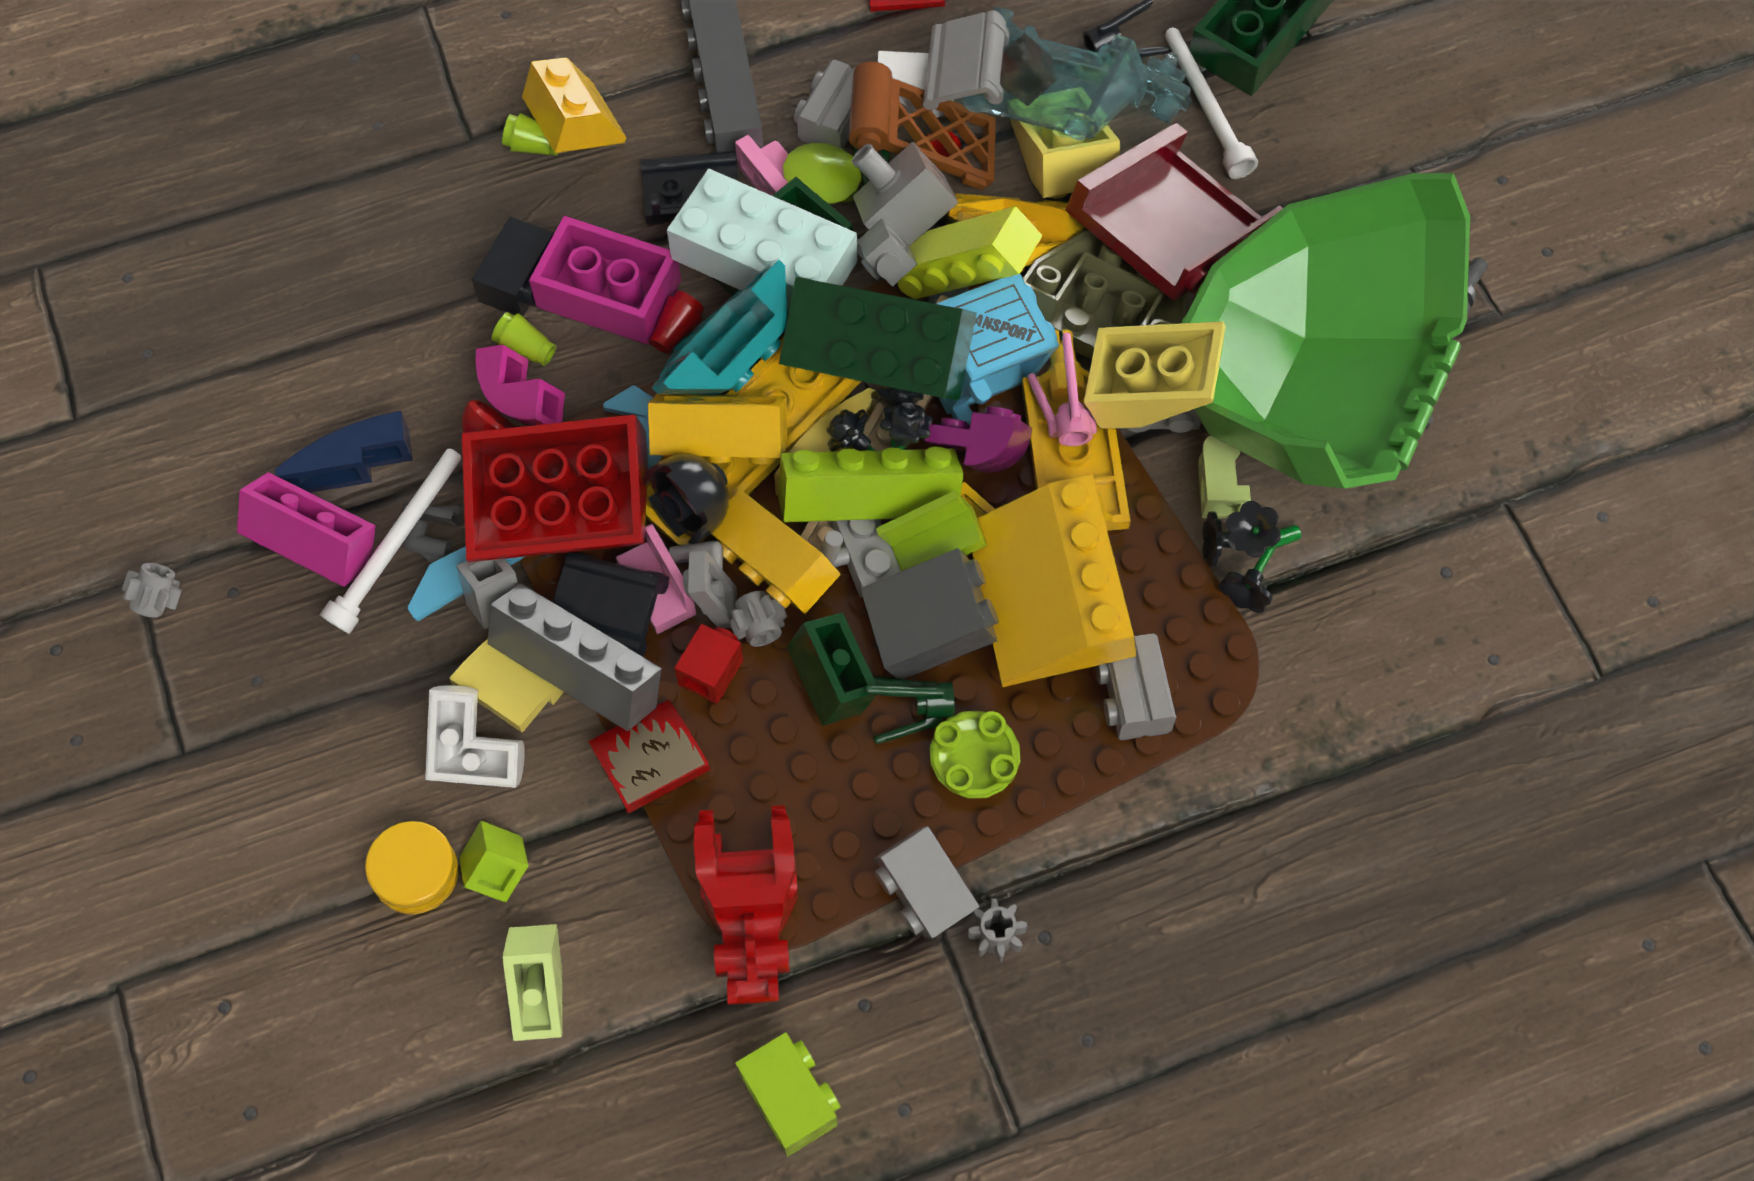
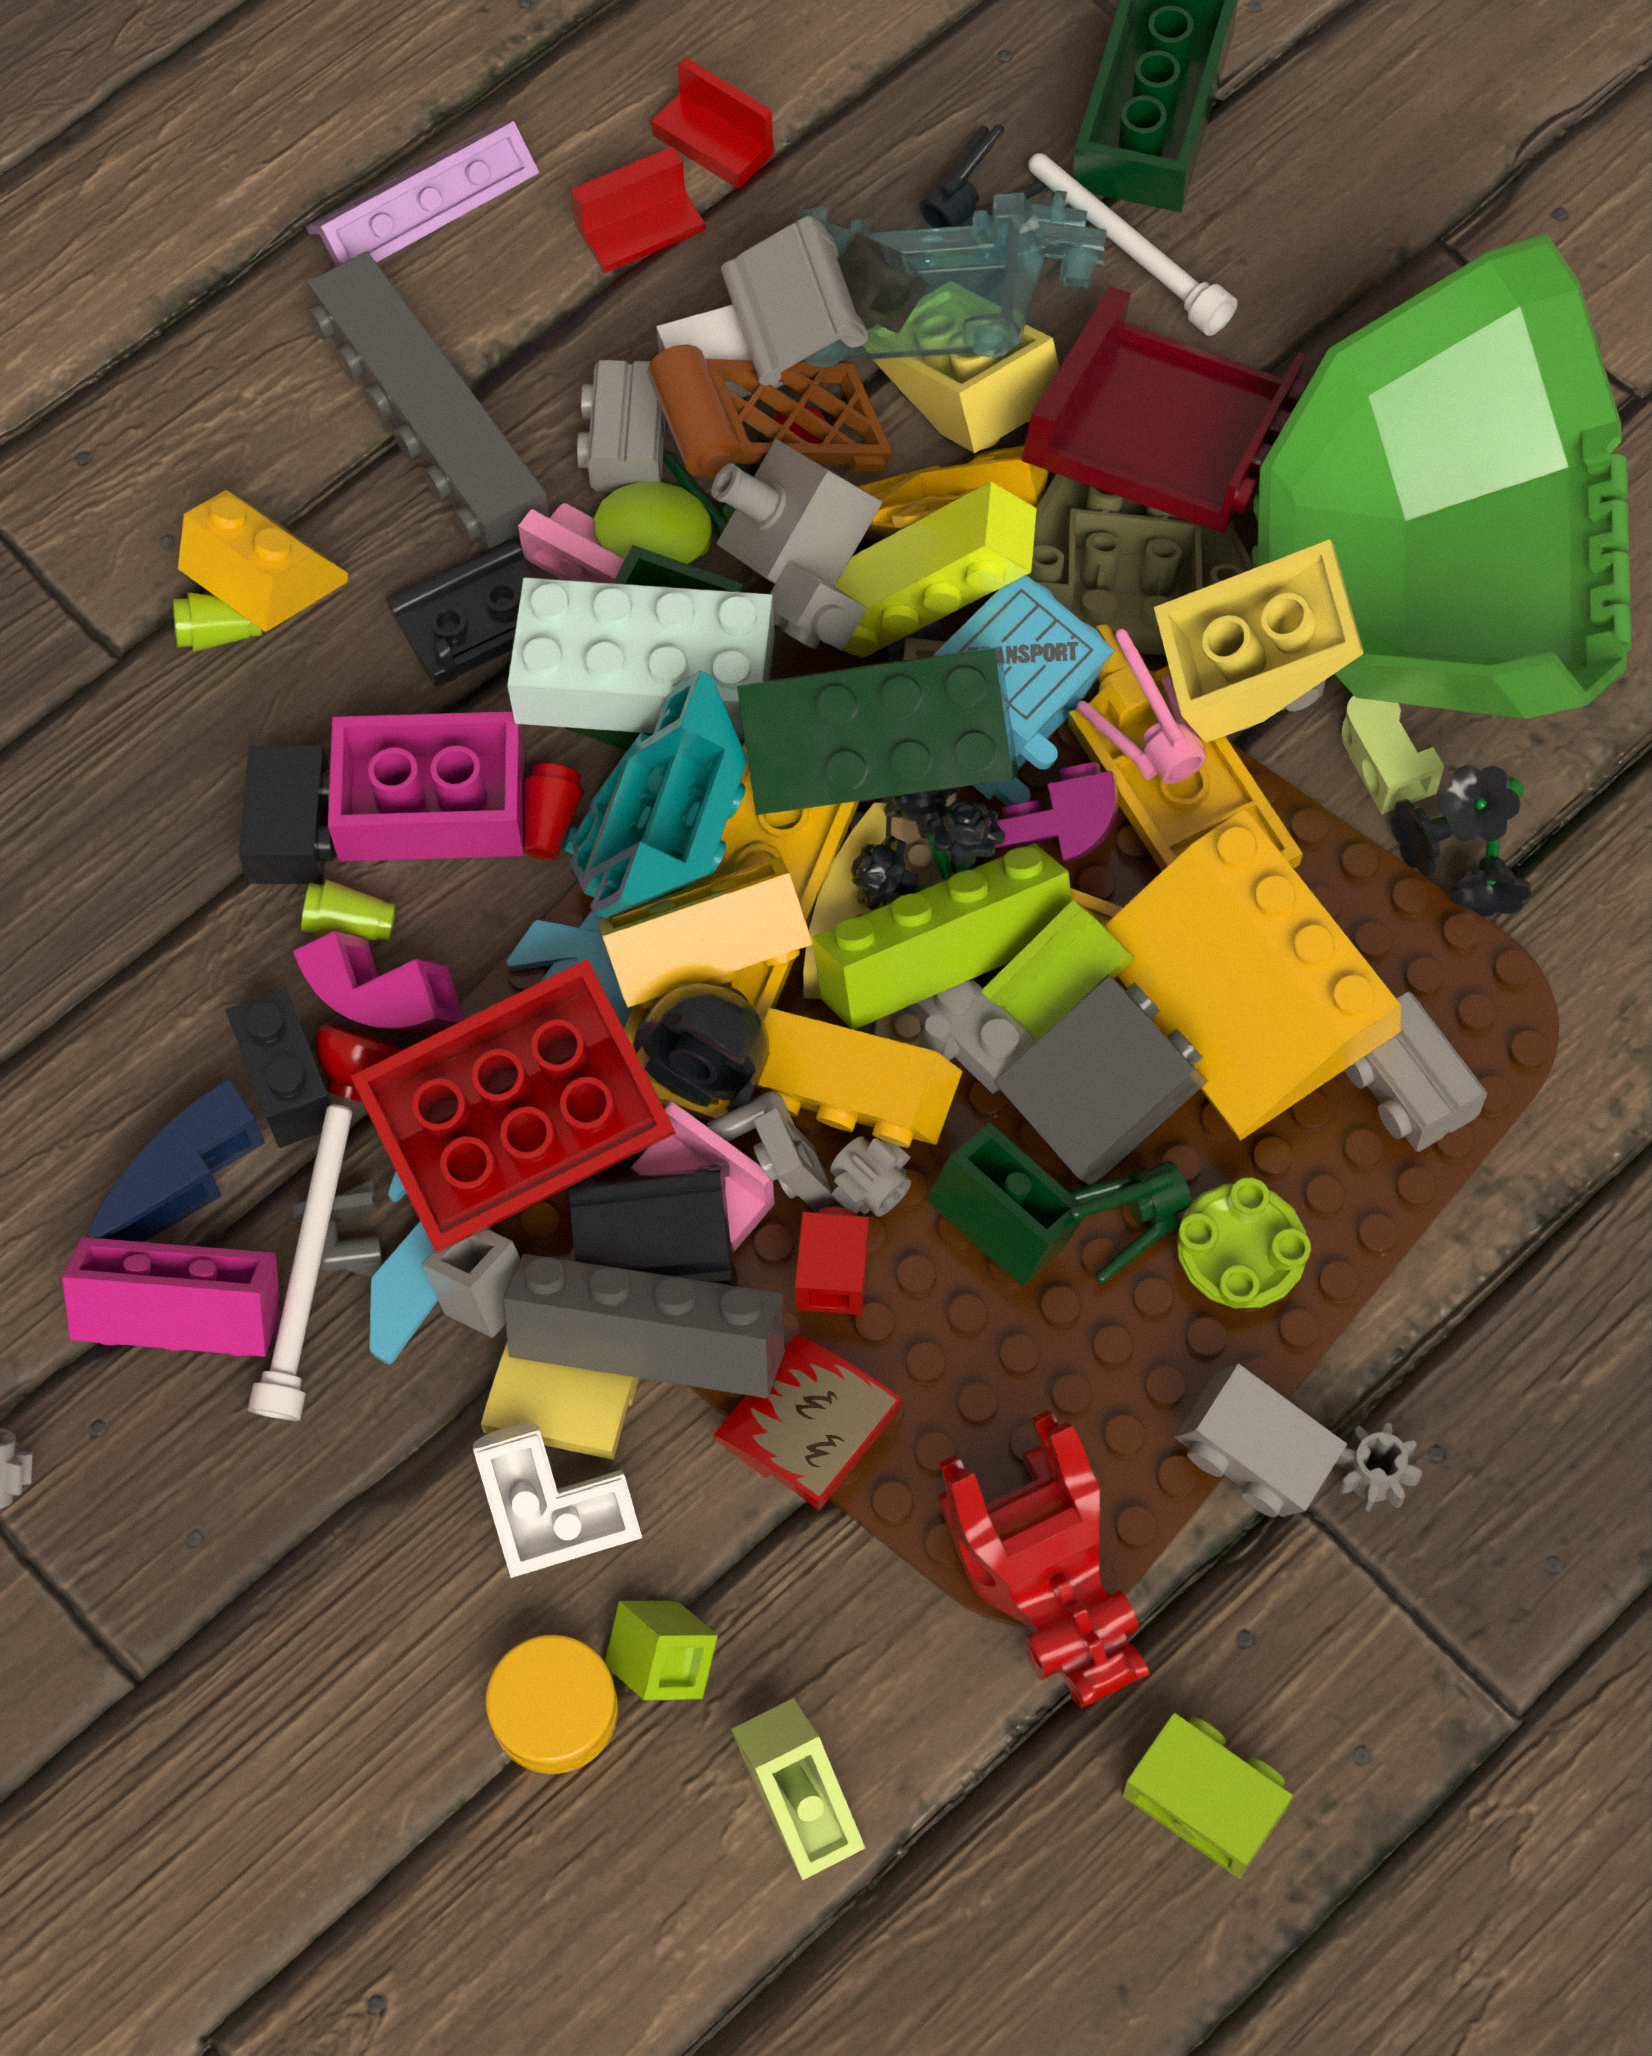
camera: 20 degrees left, 0 degrees up
(437, 414) = (280, 1066): none -> black brick

